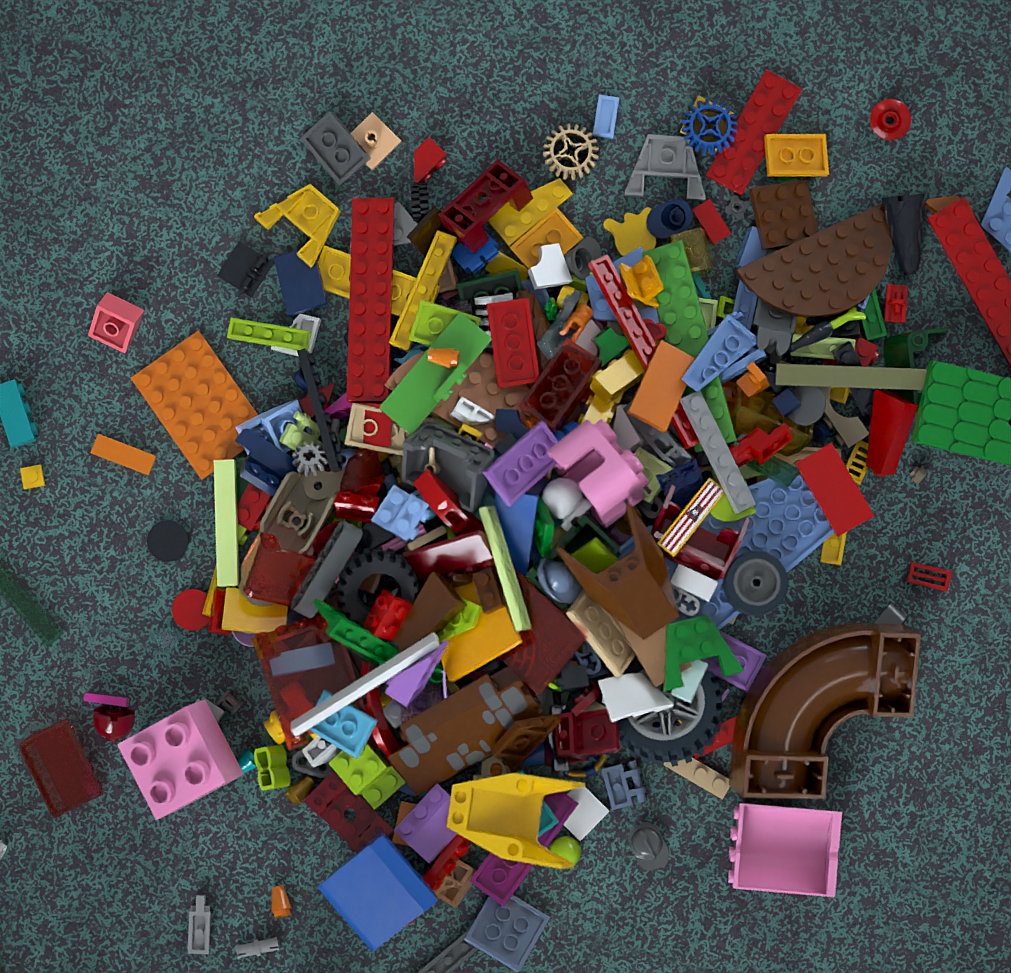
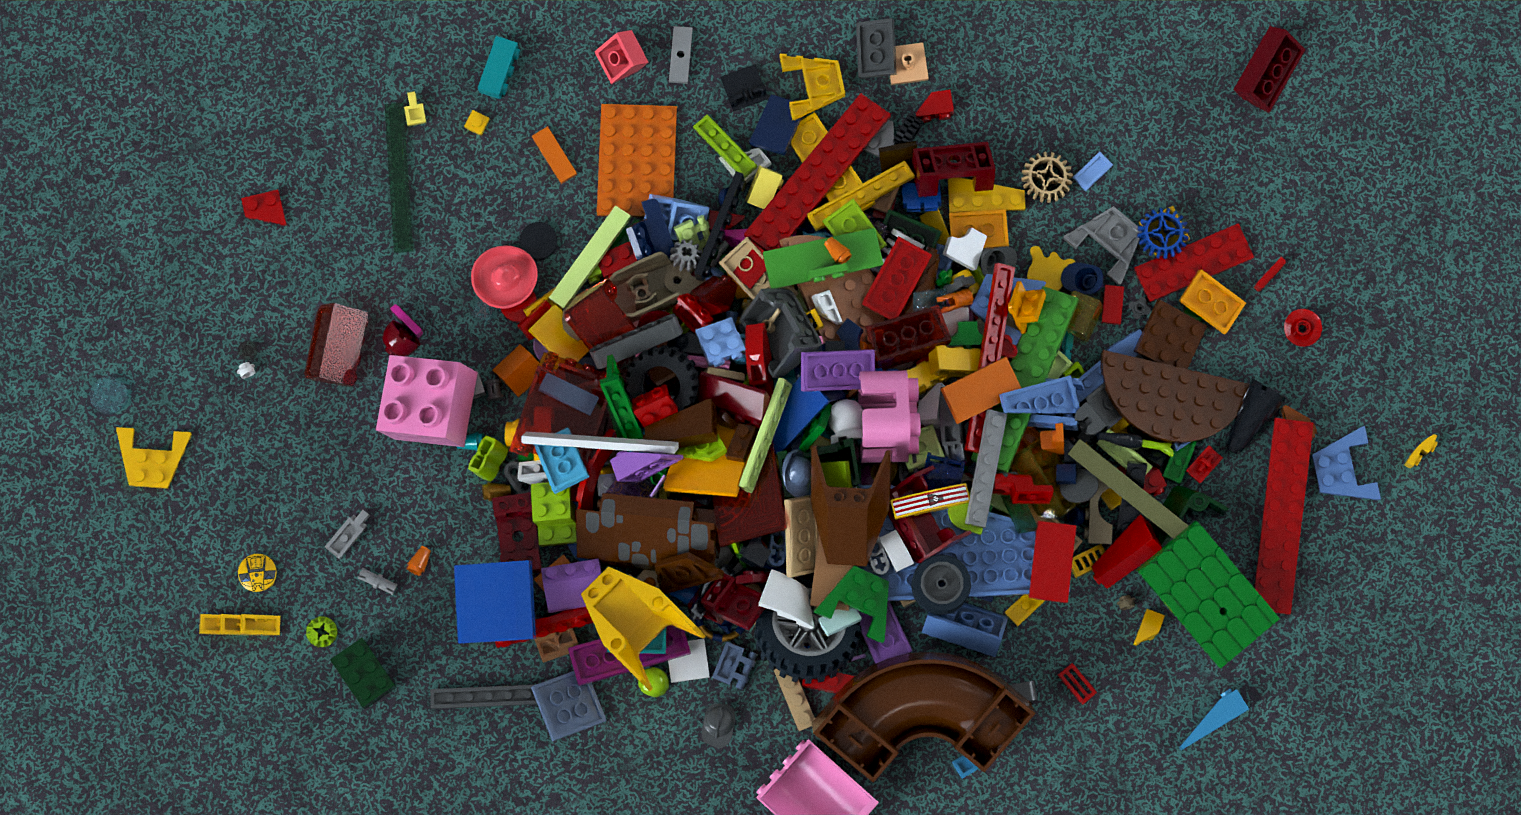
camera: 40 degrees right, 5 degrees down
(160, 271) = (680, 44): none -> light grey tile
(162, 596) = (504, 276): none -> coral hat
(237, 669) = (517, 370): none -> orange slope
(331, 346) = (764, 187): none -> light yellow brick
(808, 596) = (969, 628): none -> medium blue slope
(827, 93) = (1270, 274): none -> red tile
(886, 723) = (964, 766): none -> dark azure tile
(953, 479) = (1149, 626): none -> yellow slope

